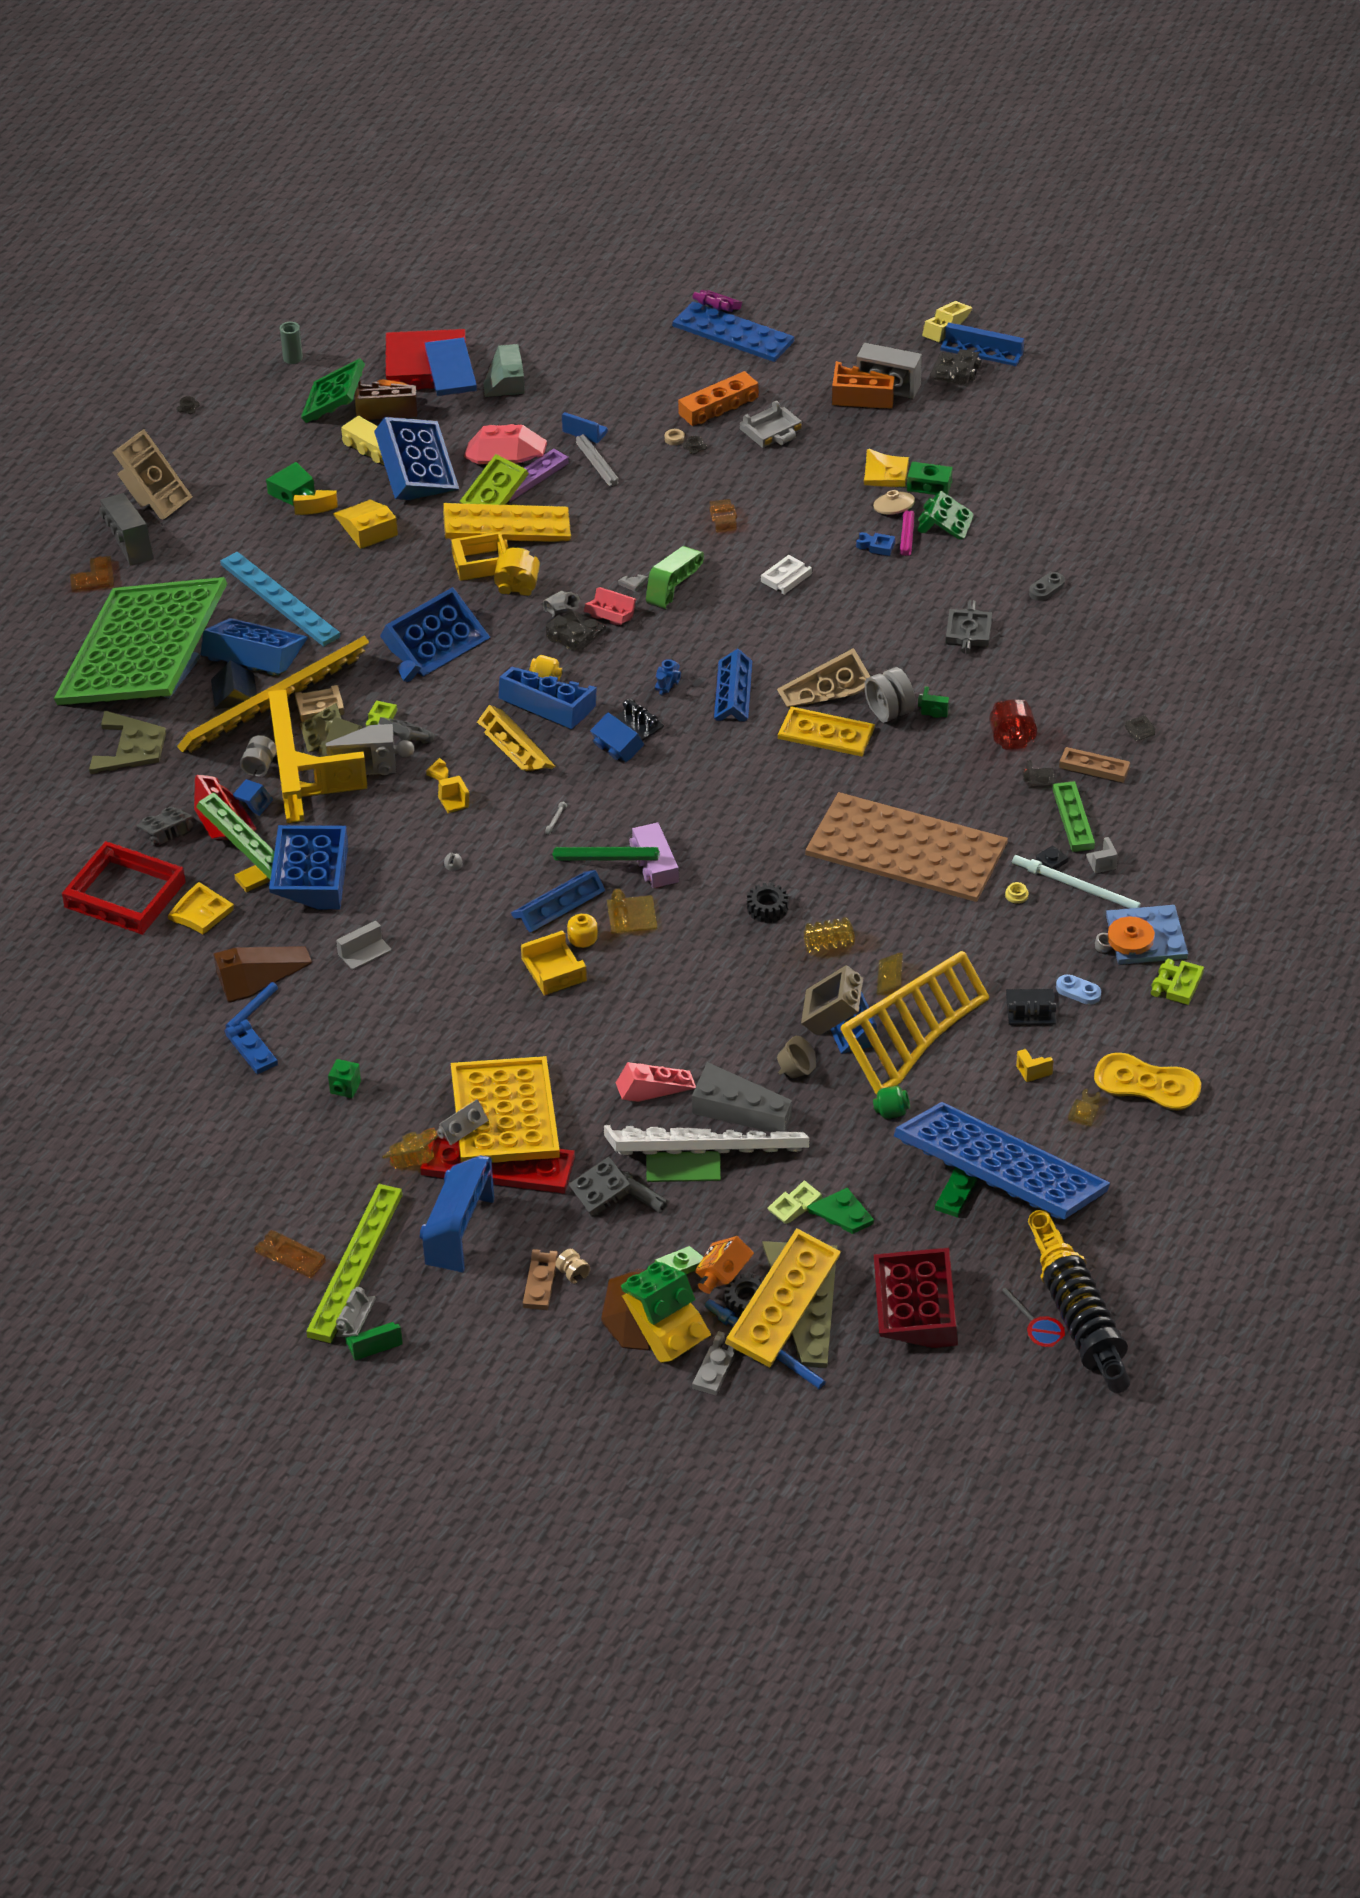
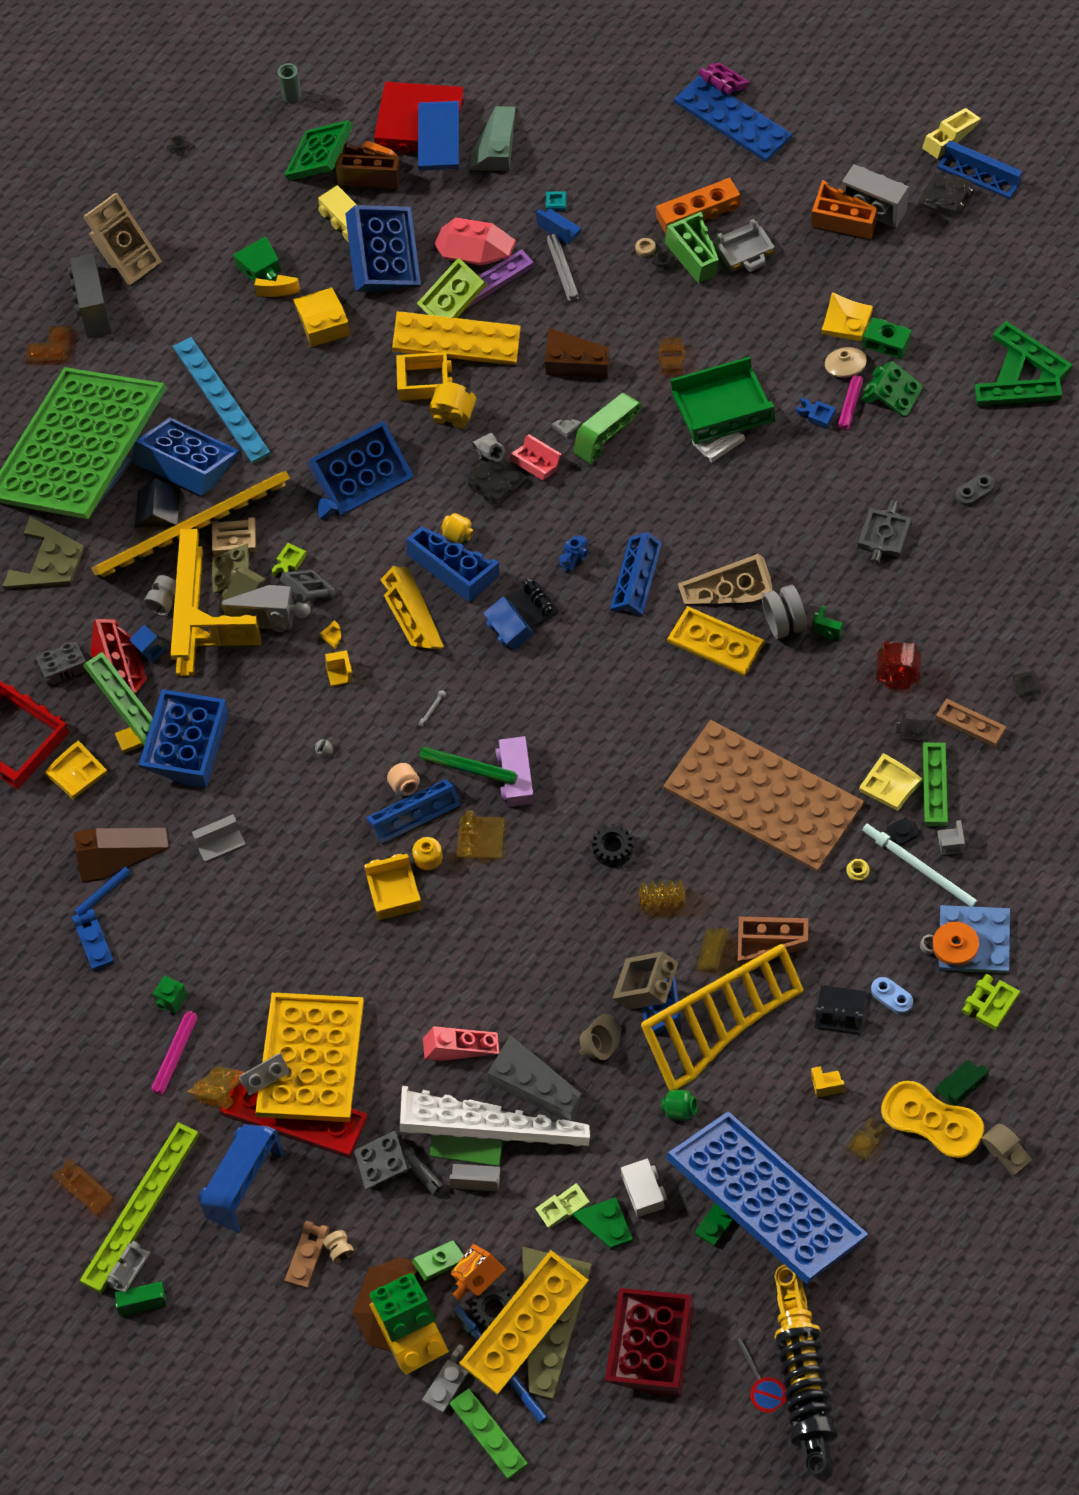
camera: 15 degrees right, 15 degrees up
(359, 1129) = (174, 1053): none -> dark pink axle
(542, 875) = (403, 779): none -> light nougat head
(578, 409) = (556, 201): none -> teal tile
(629, 524) = (575, 356): none -> reddish brown wedge
(699, 1191) = (475, 1177): none -> light grey panel
(722, 428) = (692, 247): none -> bright green wedge
(768, 1404) = (488, 1434): none -> bright green plate
(781, 542) = (721, 401): none -> green panel
(873, 1174) = (643, 1188): none -> white brick
(935, 948) = (762, 934): none -> nougat wedge
(1029, 820) = (890, 782): none -> light yellow plate
(1055, 503) = (1021, 349): none -> green plate
(1169, 1048) = (962, 1082): none -> dark green panel
(1223, 1090) = (1004, 1144): none -> dark tan brick

